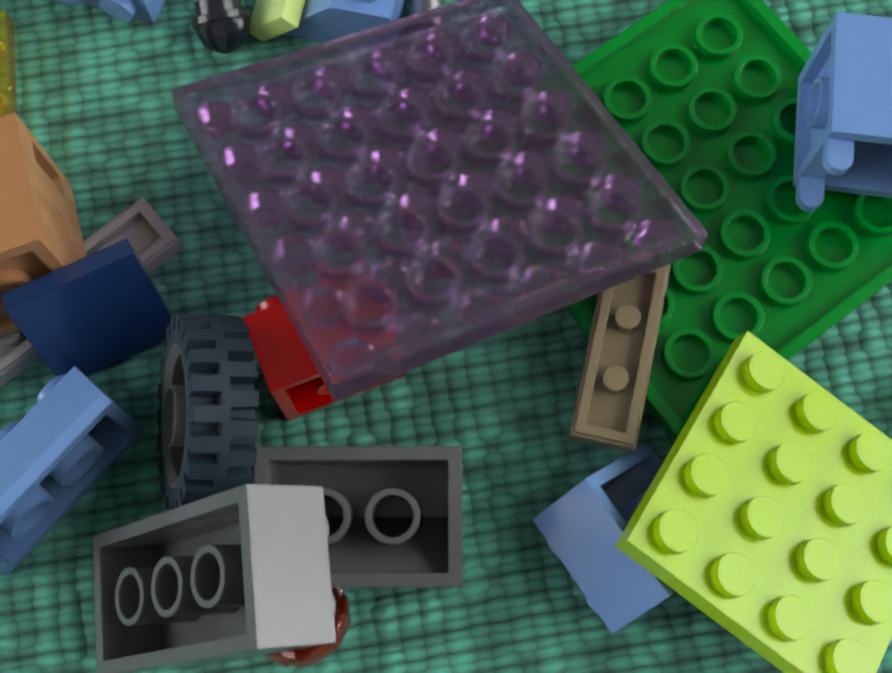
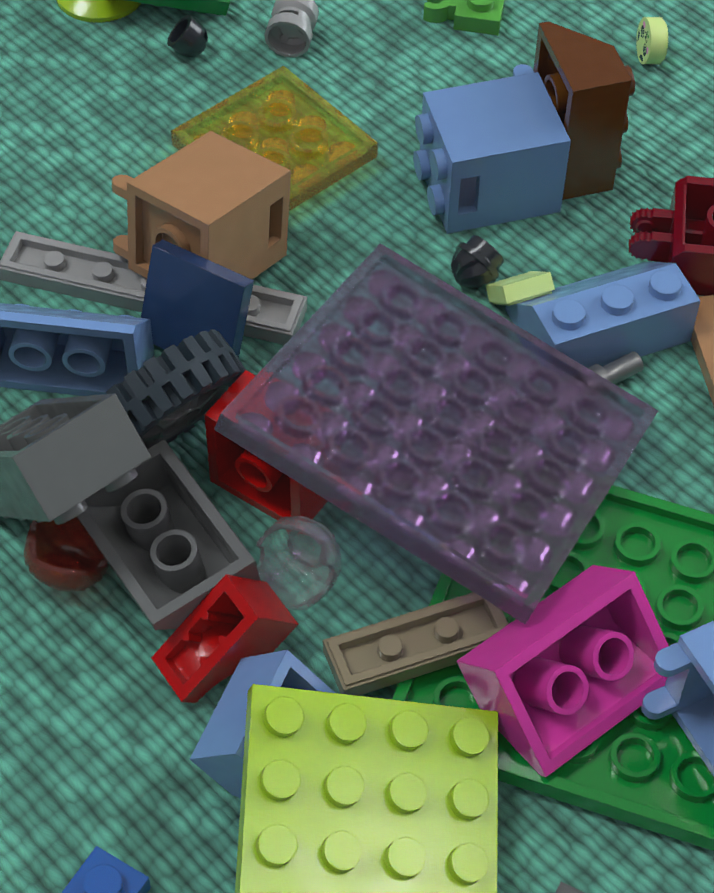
camera: 55 degrees right, 20 degrees down
(459, 400) = (299, 561): none -> clear hair
(496, 521) = (231, 623): none -> red arch
(754, 252) = (570, 668): none -> dark pink slope

